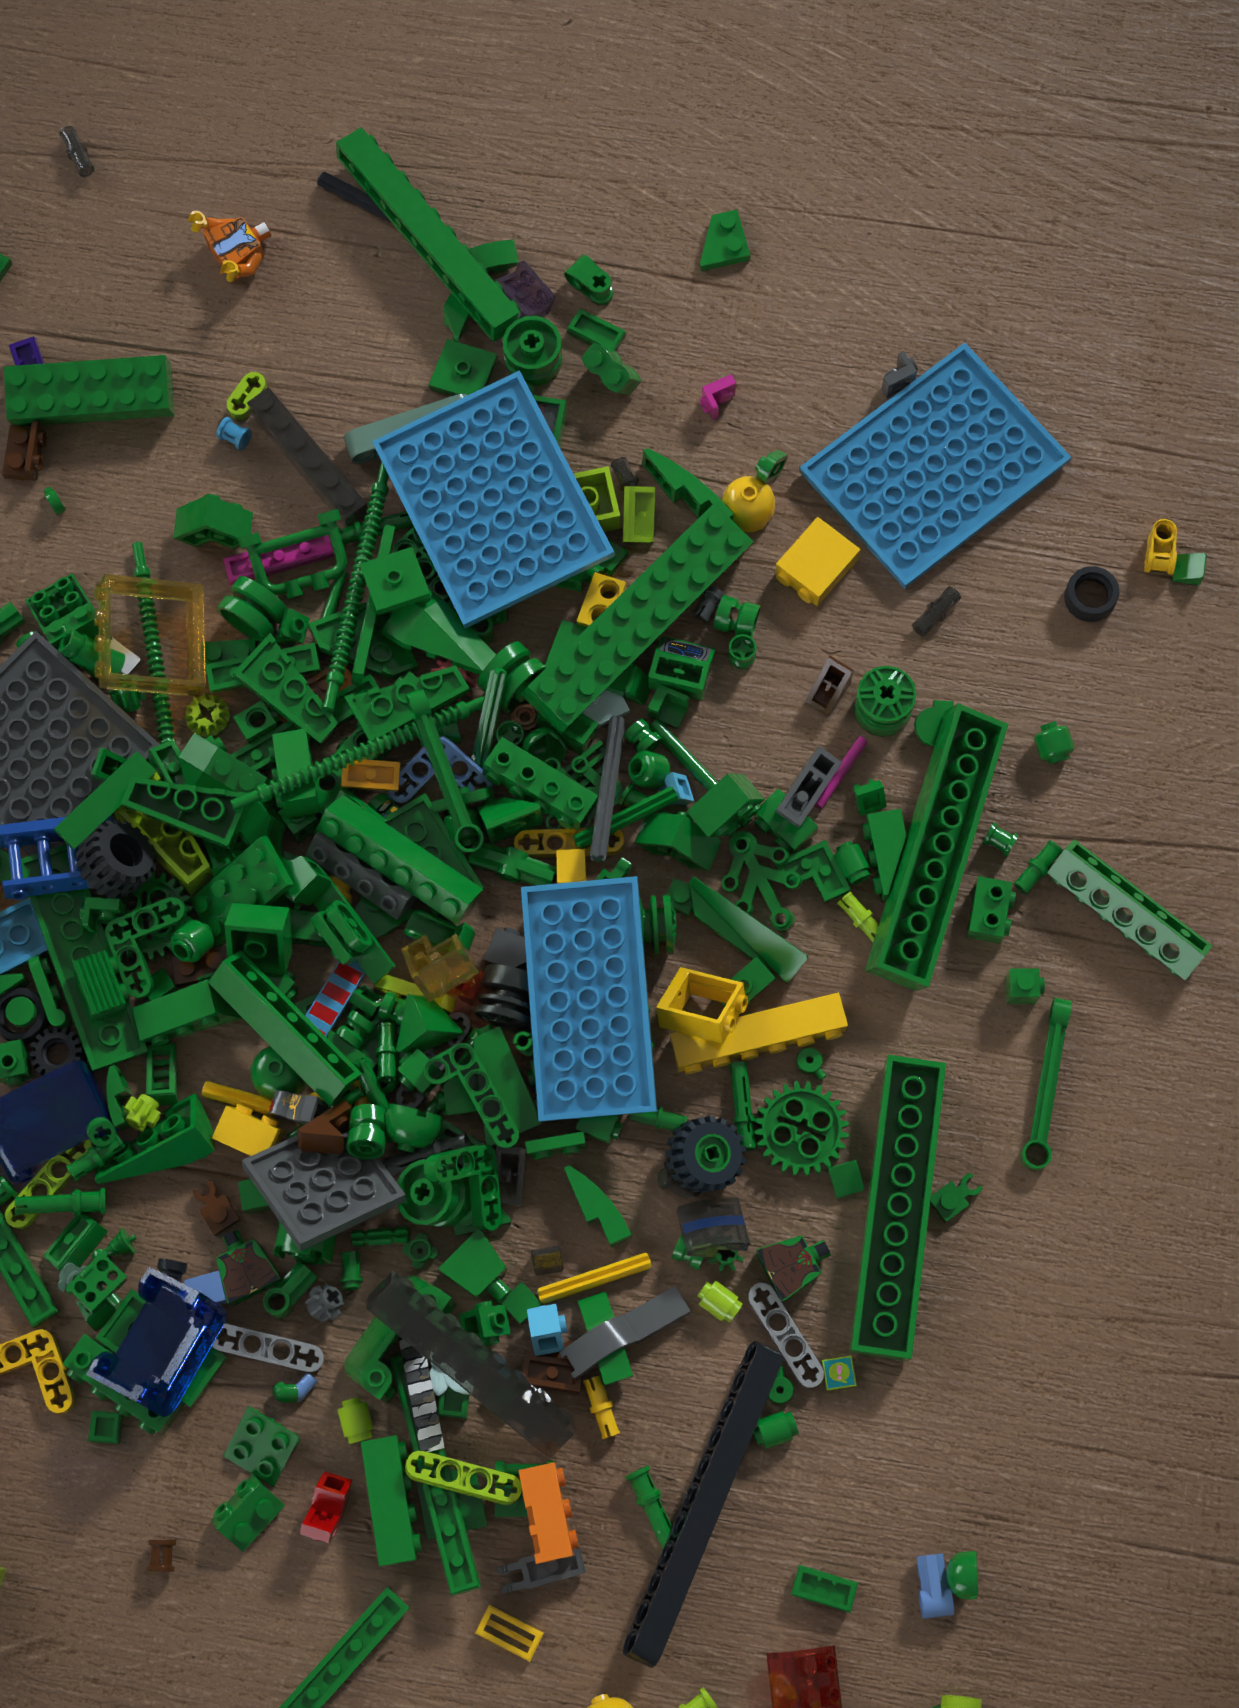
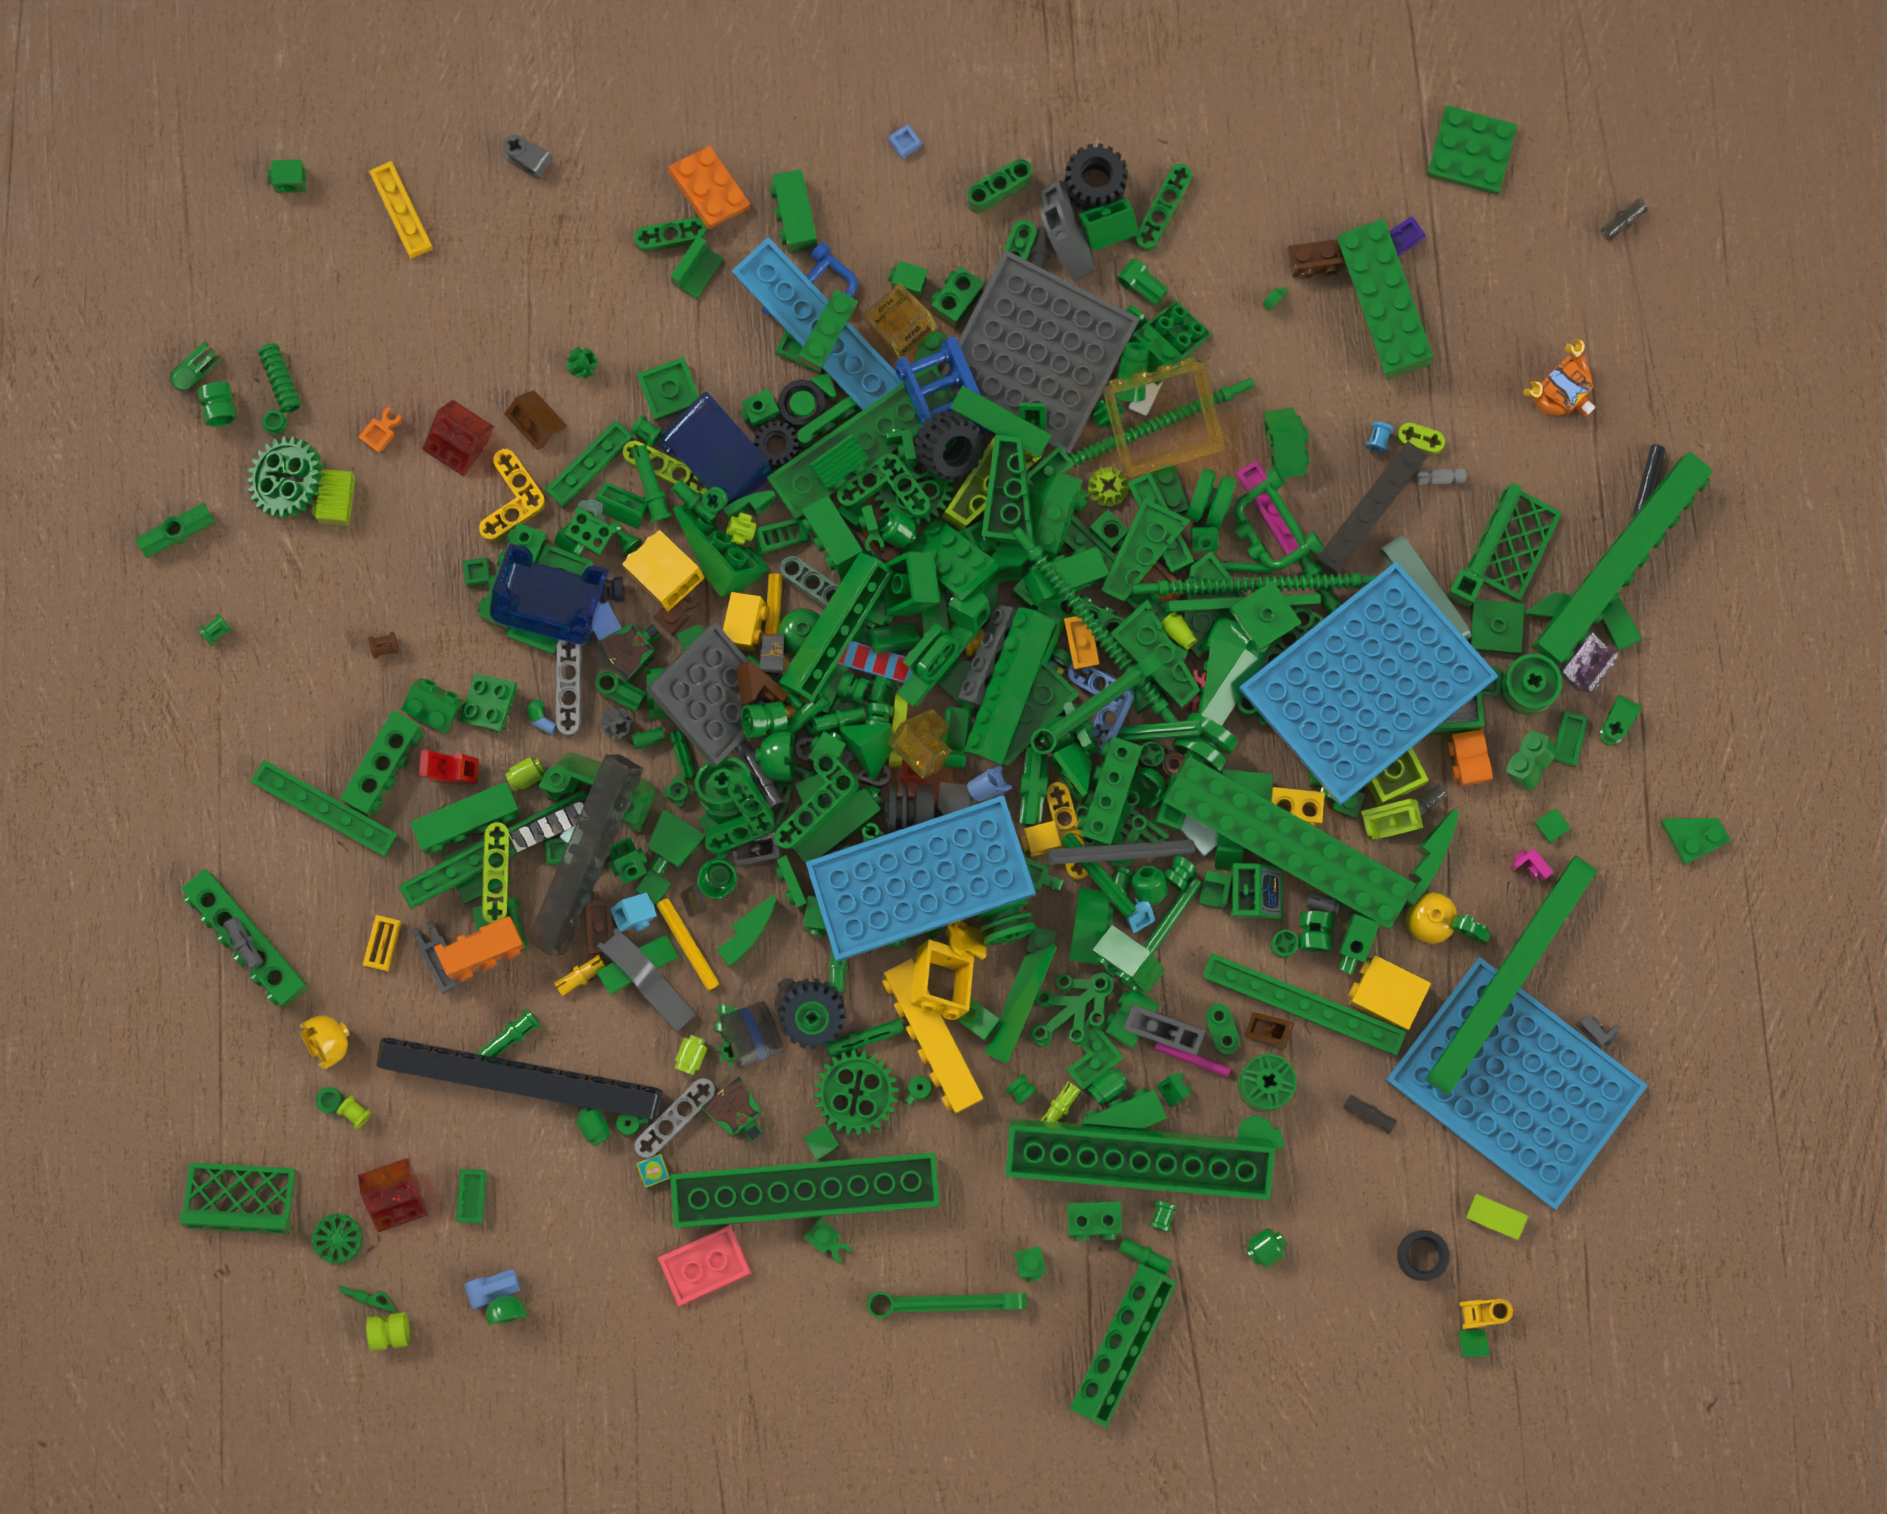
camera: 70 degrees right, 5 degrees up
(164, 1210) = (663, 570): none -> yellow brick
(179, 968) = (869, 523): none -> green plate
(212, 1051) = (804, 575): none -> sand green beam
(261, 1559) = (395, 726): none -> green brick
(292, 384) = (1441, 476): none -> light grey axle
(312, 974) = (893, 638): none -> green tile
(369, 353) = (1497, 527): none -> green fence
(386, 674) = (1178, 631): none -> lime cone
(417, 387) = (1465, 588): none -> green brick
(500, 910) = (989, 785): none -> medium blue piece
(529, 1227) = (717, 878): none -> green hair
(593, 427) = (1469, 758): none -> orange brick
(662, 971) = (966, 938): none -> yellow plate
(681, 369) = (1552, 825): none -> green tile
(756, 578) = (1359, 930): none -> green torso
(808, 649) = (1304, 1004): none -> green plate
(816, 735) = (1222, 1029): none -> green plate
(828, 439) = (1511, 975): none -> green beam
(836, 953) = (1021, 1089): none -> green wheel
(955, 1339) = (704, 1265): none -> coral tile
(1066, 514) = (1497, 1216): none -> lime slope

